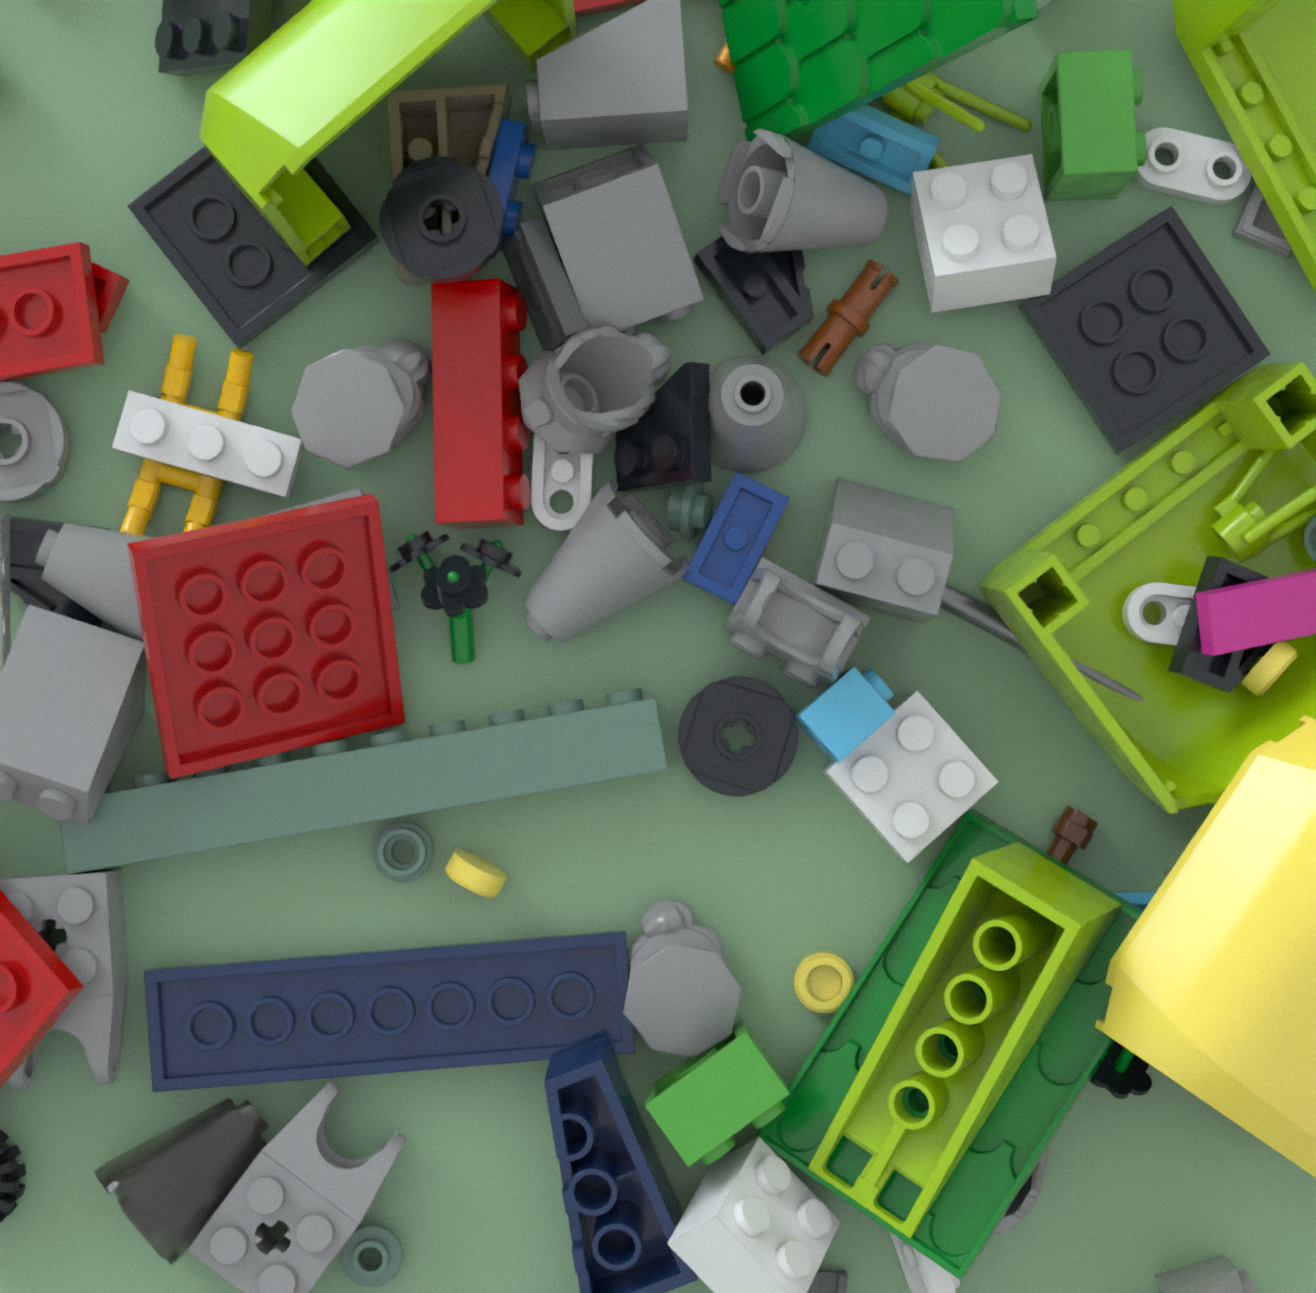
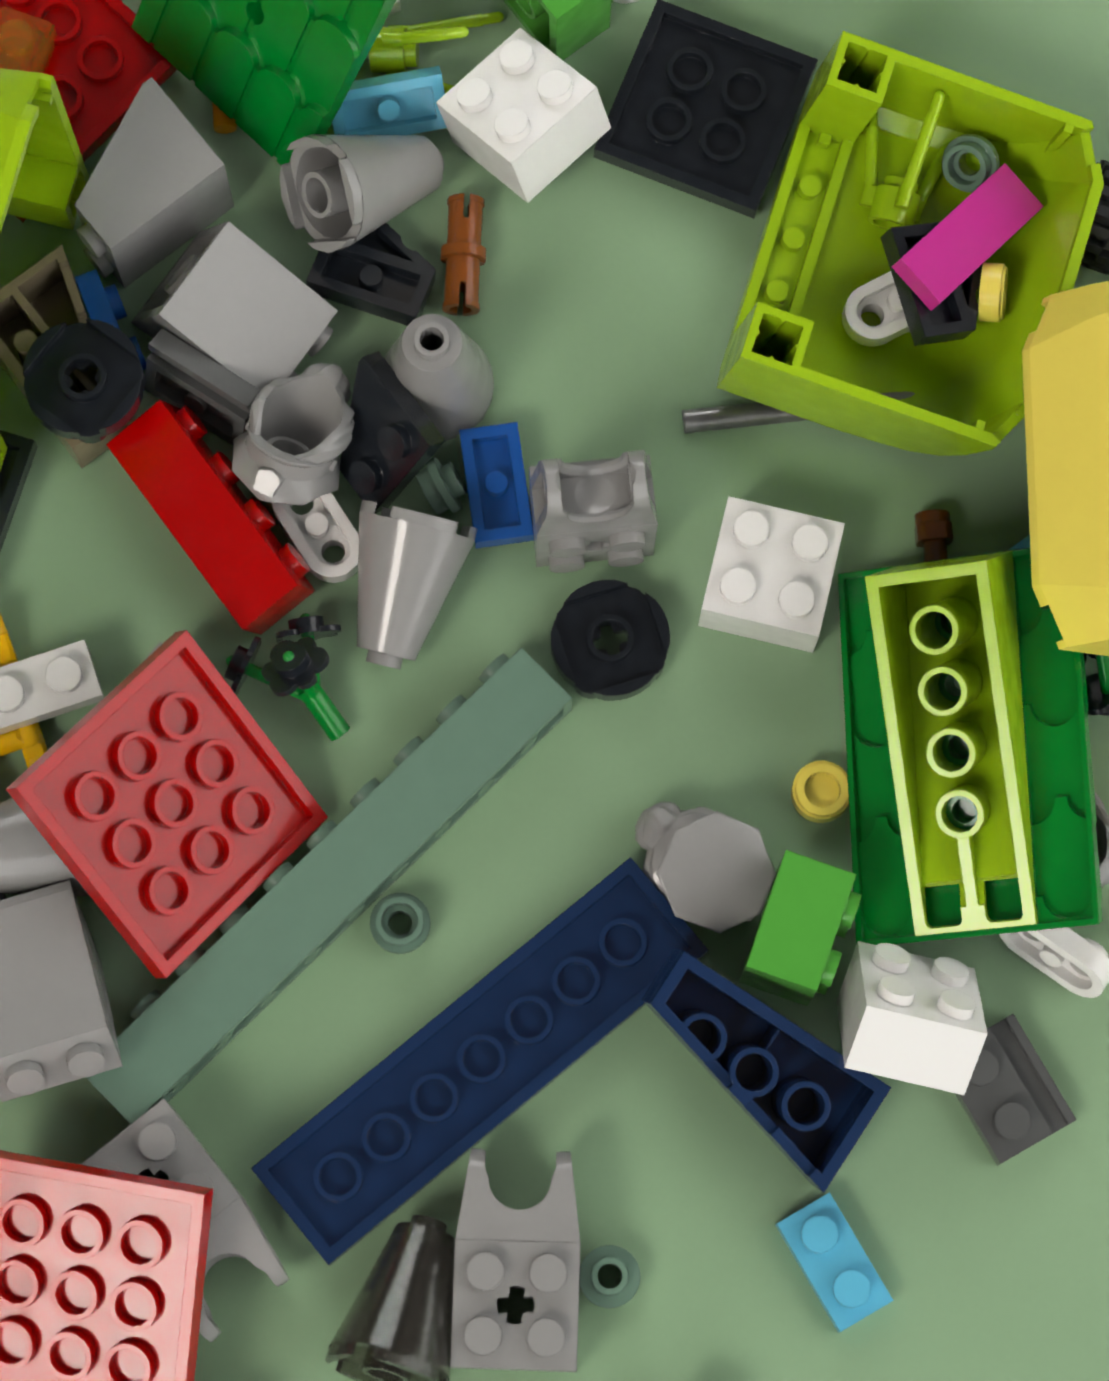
camera: 40 degrees left, 10 degrees down
(361, 401) = (112, 577): light grey piece -> none
(475, 873) = (473, 897): light yellow tile -> none
(846, 712) = (683, 554): medium azure brick -> none
(885, 551) = (626, 407): light grey slope -> none
(930, 398) = (573, 268): light grey piece -> none

